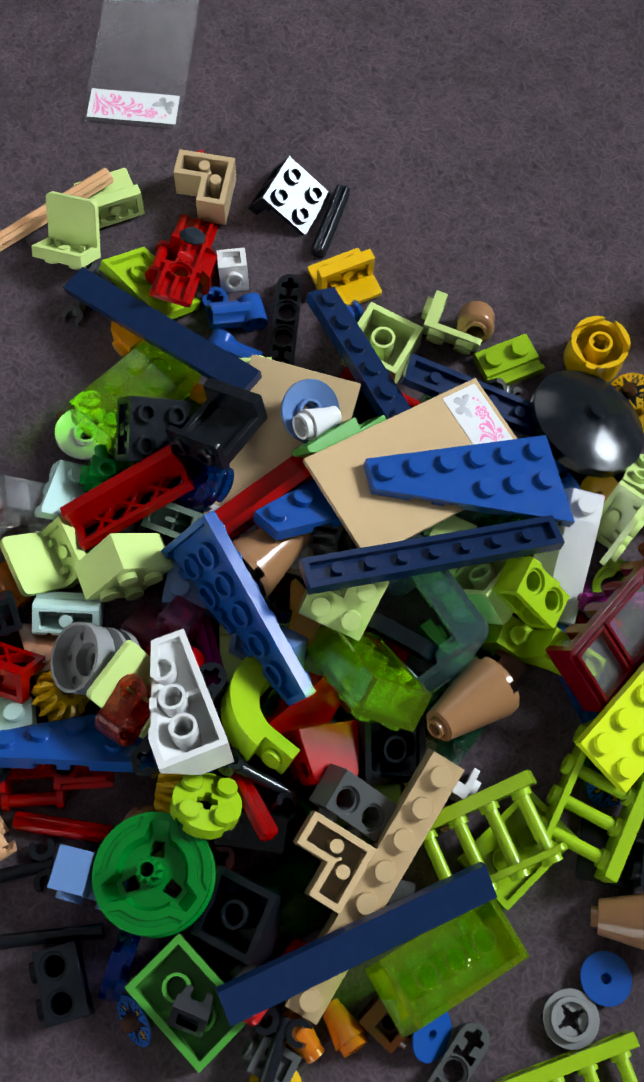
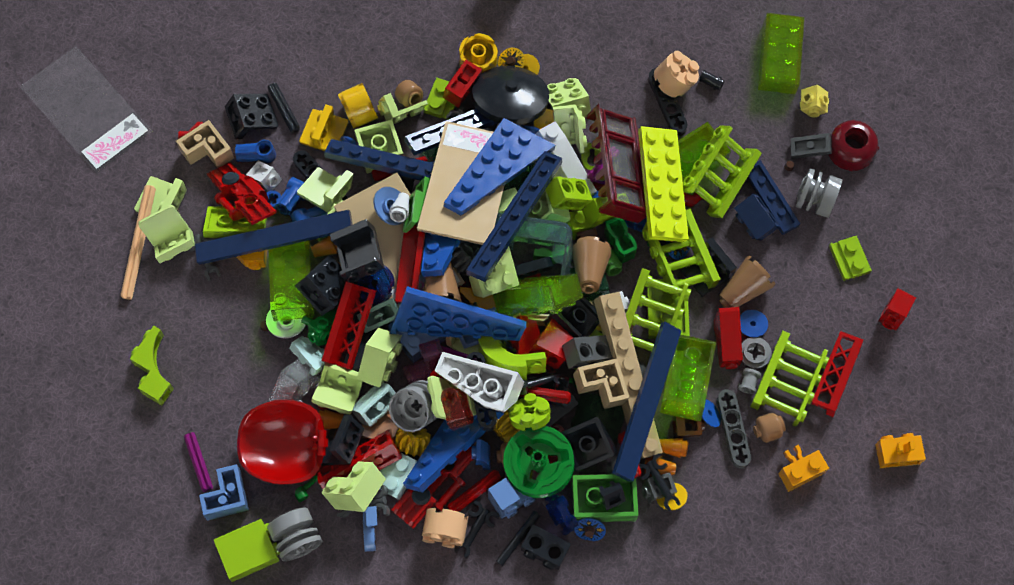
camera: 45 degrees left, 0 degrees up
(110, 794) = (482, 454): none -> blue slope
(251, 237) = (254, 151): none -> blue piece
(274, 334) = (325, 189): none -> yellowish green bracket
(405, 283) = (357, 106): none -> yellow brick
(507, 729) = (614, 265): none -> bright green cone
(525, 1048) = (749, 381): none -> light grey bush
(537, 360) = (461, 83): none -> red brick
(544, 703) = (617, 236): none -> green brick
(553, 966) = (728, 337): none -> red slope

